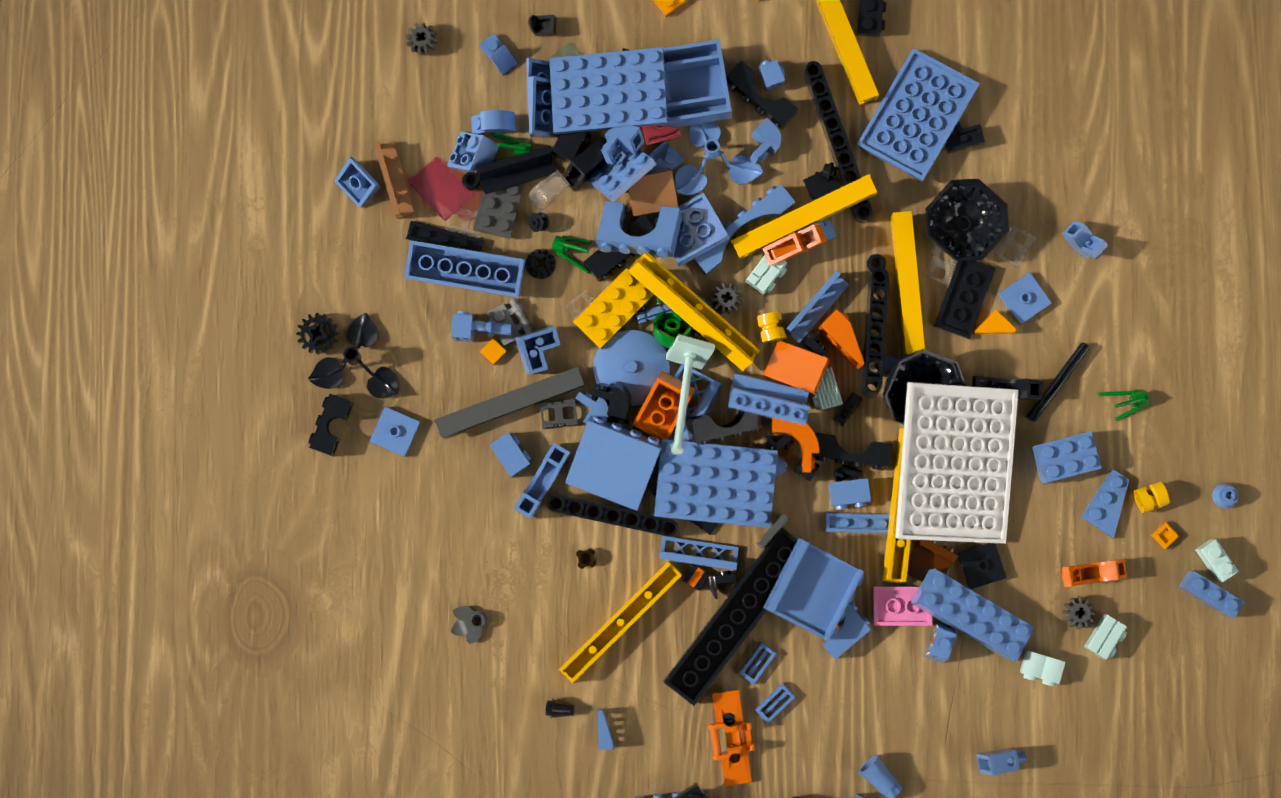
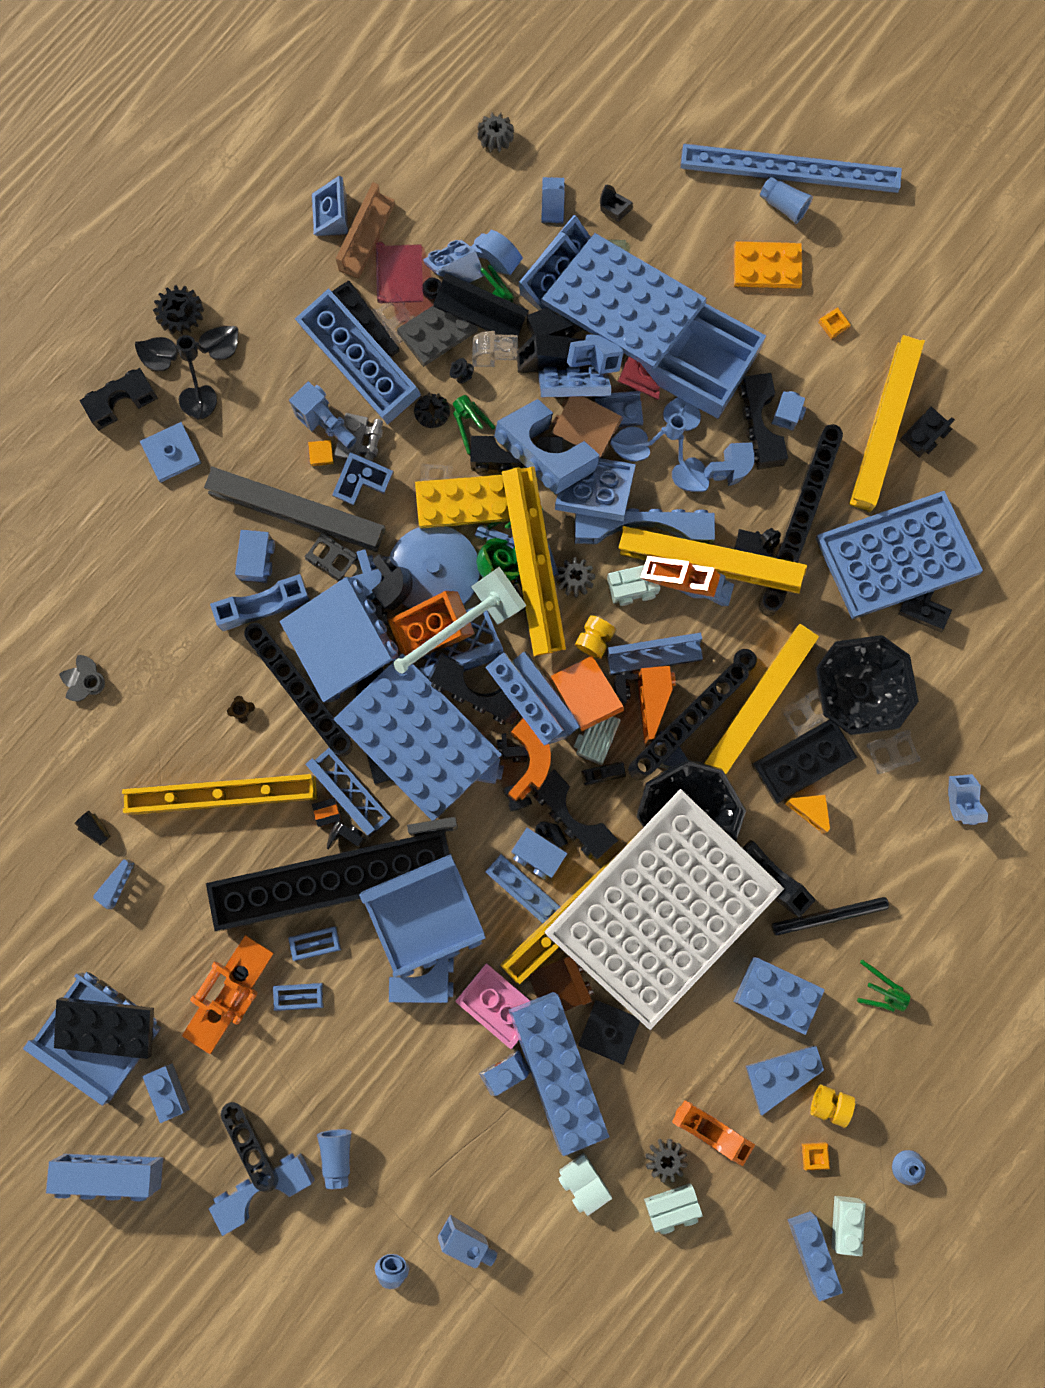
camera: 40 degrees right, 5 degrees down
(1024, 298) = (862, 809): medium blue plate -> none

